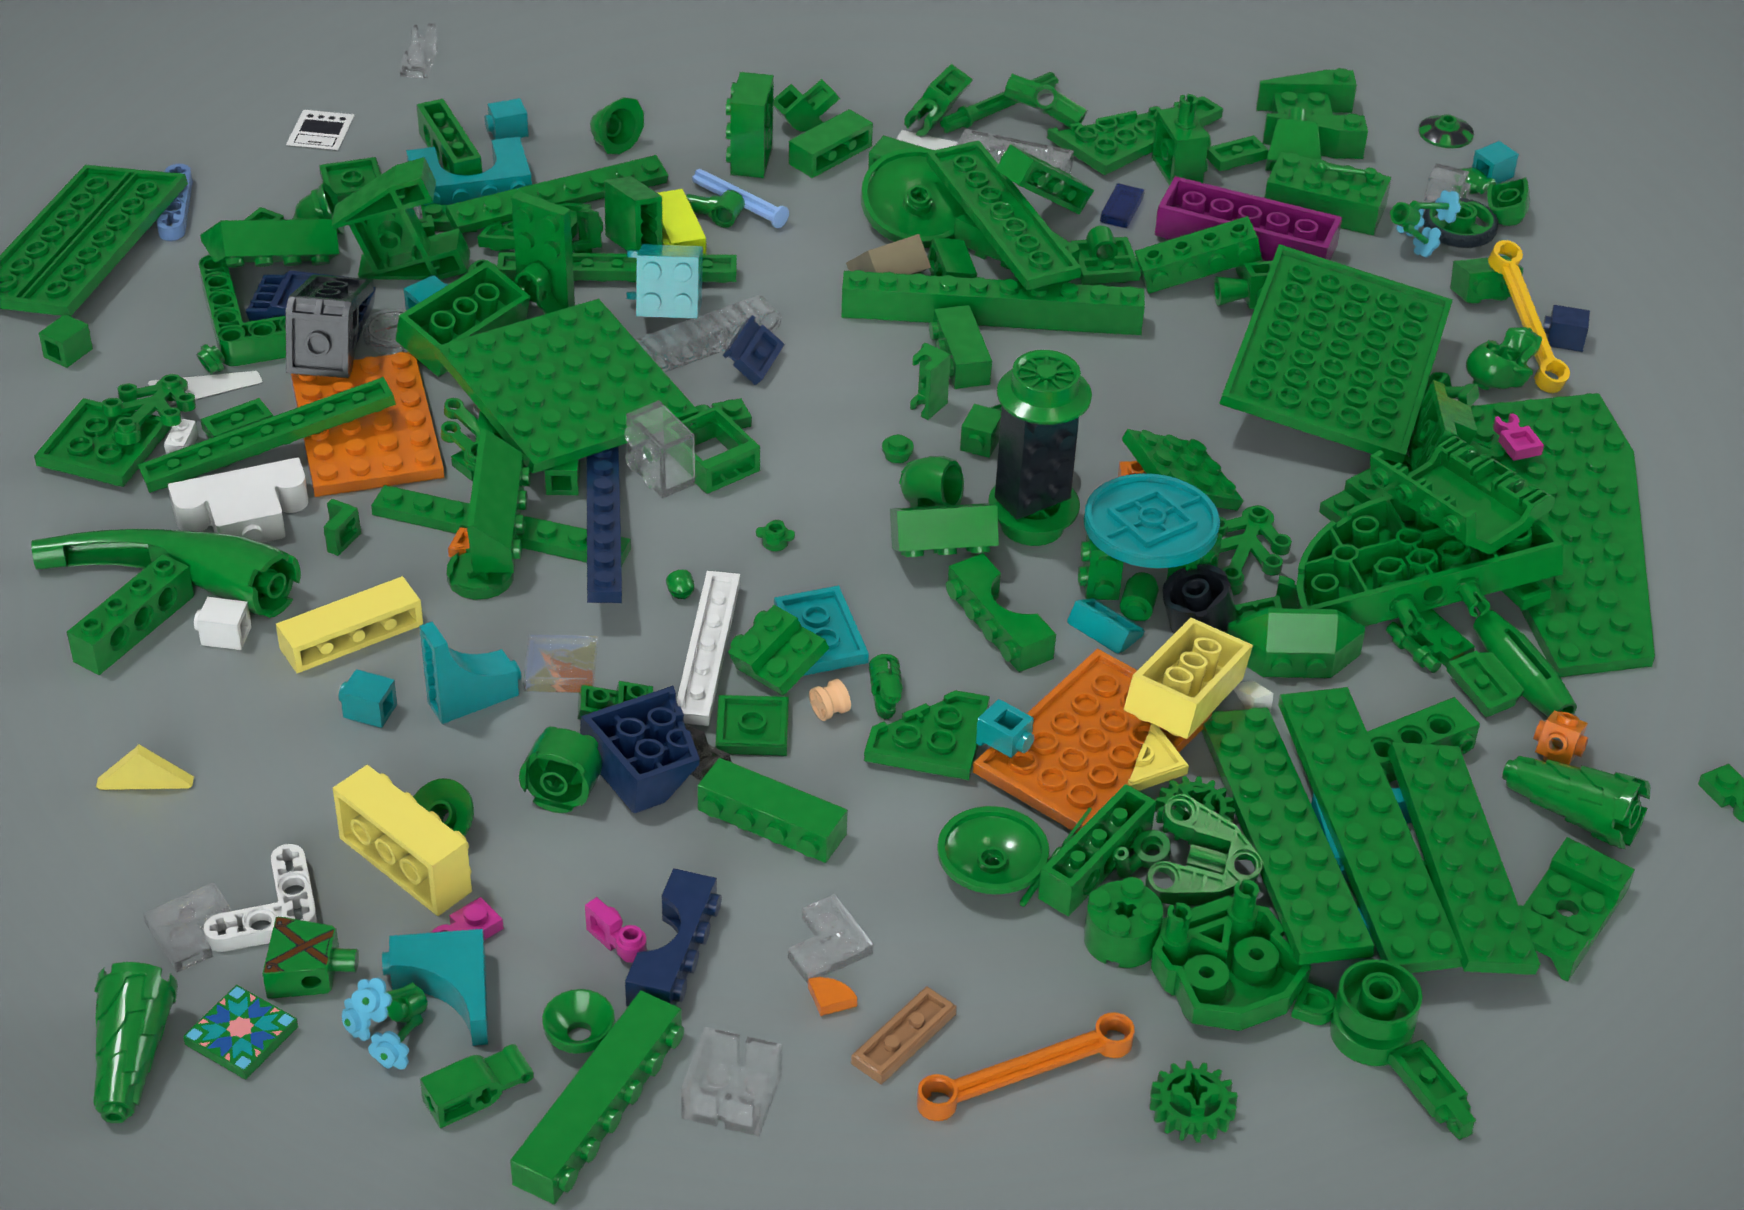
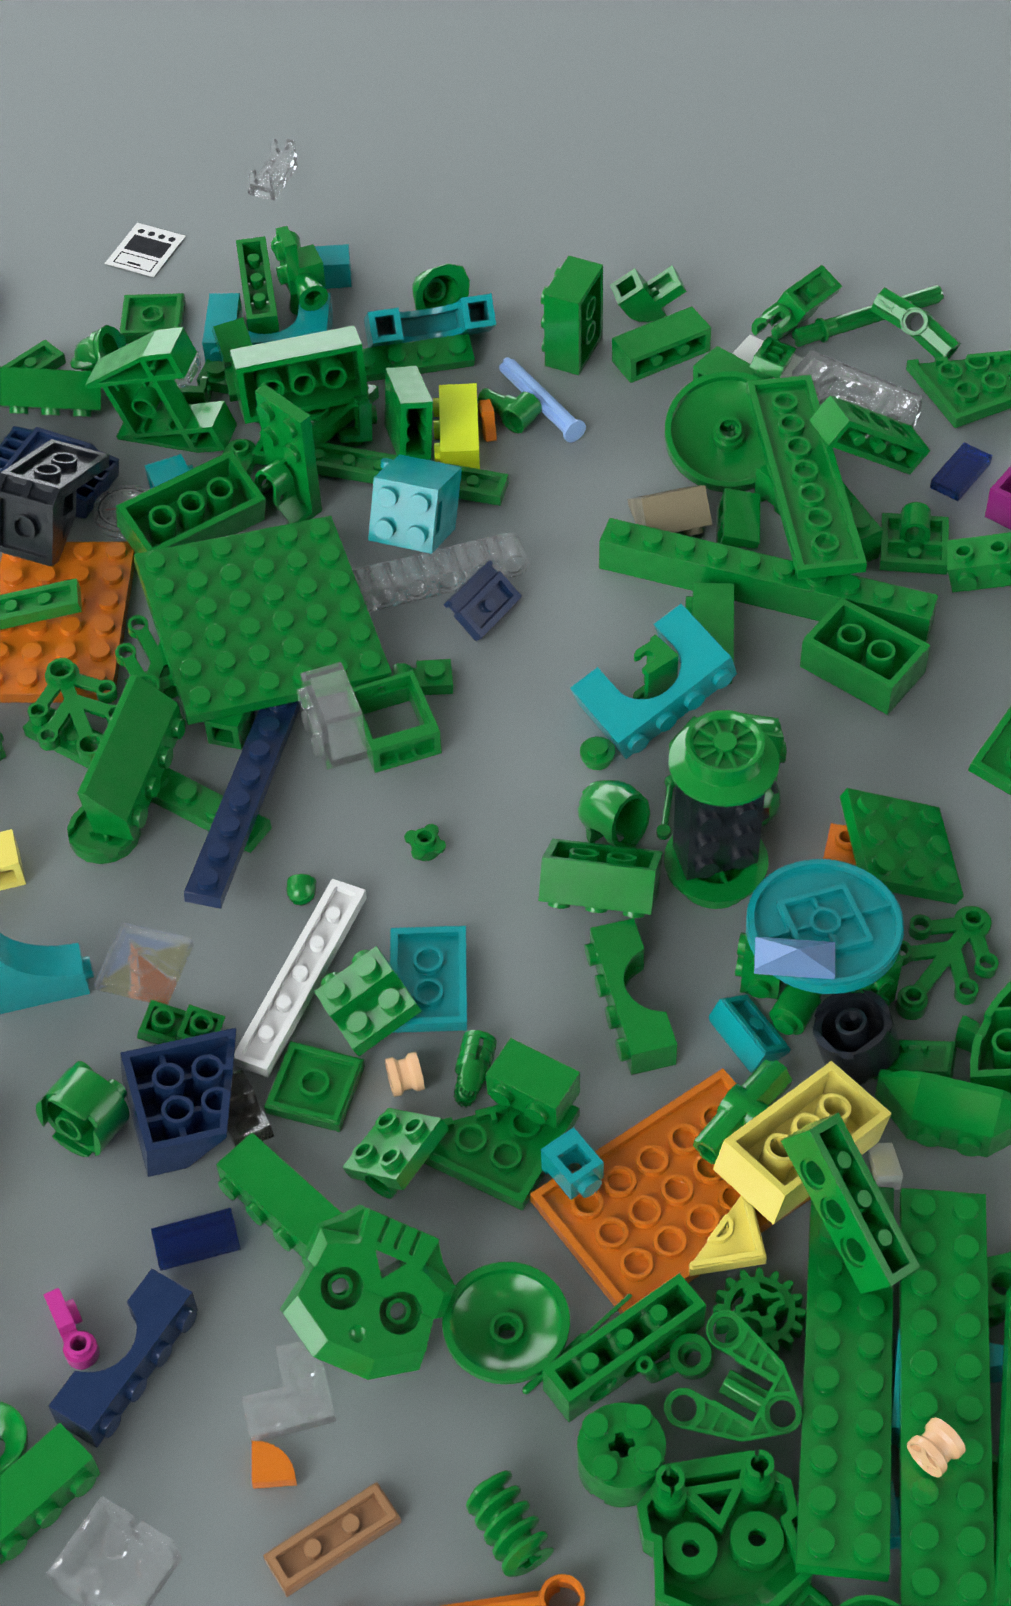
camera: 20 degrees right, 10 degrees up
(398, 456) = (63, 677): none -> green plant
(451, 182) = (231, 336): none -> green brick
(487, 119) = (300, 271): none -> green brick
(488, 196) = (305, 369): none -> green brick
(589, 152) = (466, 316): none -> teal arch
(696, 849) = (195, 1239): none -> clear blue tile
(702, 216) = (487, 414): none -> orange tile
(846, 753) = (395, 1150): none -> green plate
(869, 872) = (356, 1325): none -> green brick
(926, 416) = (635, 722): none -> teal arch
(935, 139) = (772, 358): none -> green plate
(949, 677) = (532, 1083): none -> green brick
(976, 496) = (664, 831): none -> green hinge
(1050, 992) = (506, 1527): none -> green piece
(1101, 341) = (864, 655): none -> green brick
(1125, 663) = (742, 1105): none -> green piece
(1139, 541) = (794, 958): none -> medium blue slope
(1267, 703) = (850, 1204): none -> green brick
(1380, 850) = (936, 1447): none -> light nougat wheel

